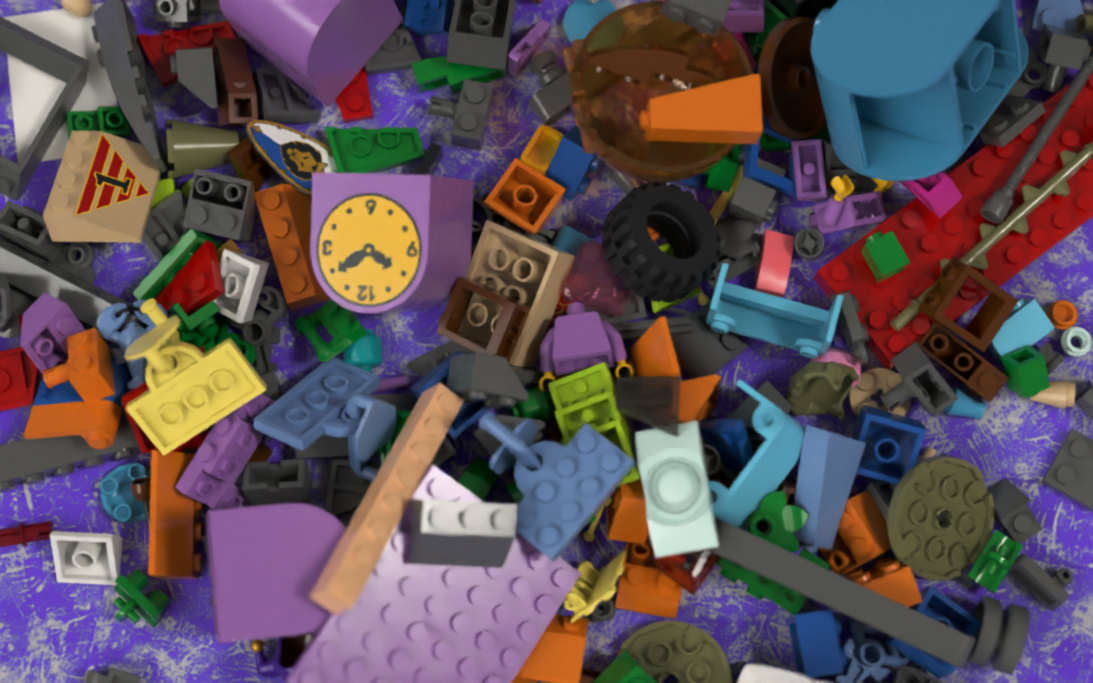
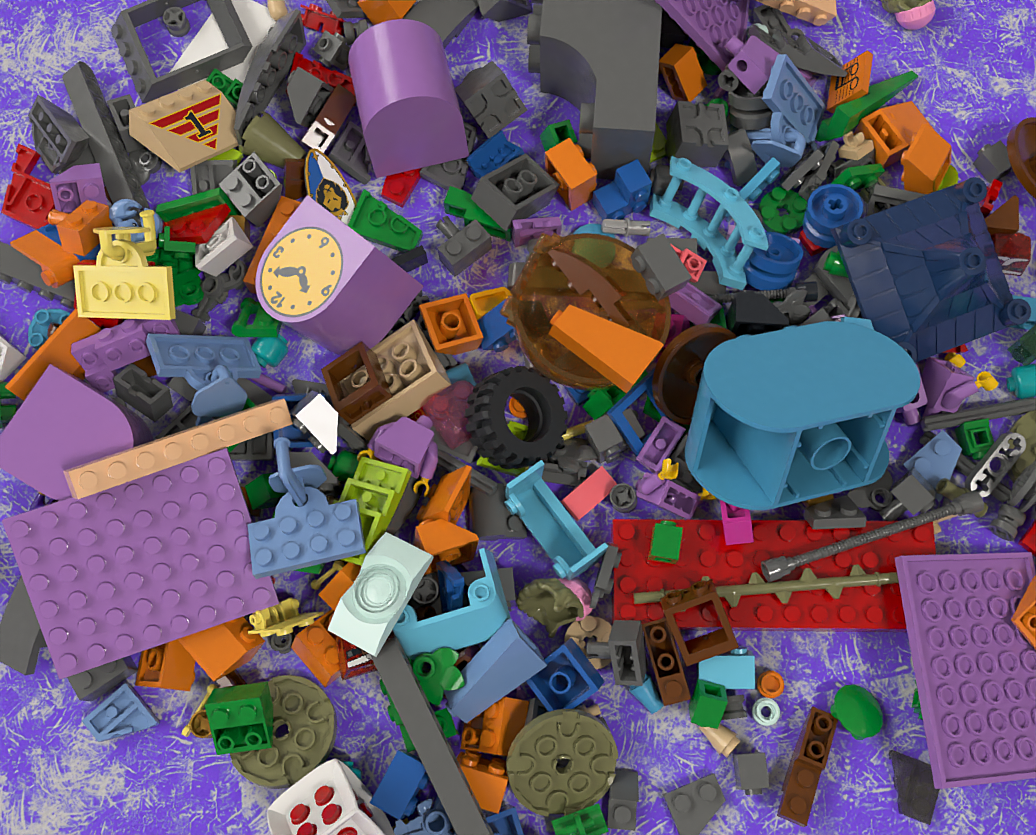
camera: 35 degrees right, 5 degrees down
(461, 533) = (206, 507): slope -> none
(651, 401) = (414, 518): clear smoke wing -> none

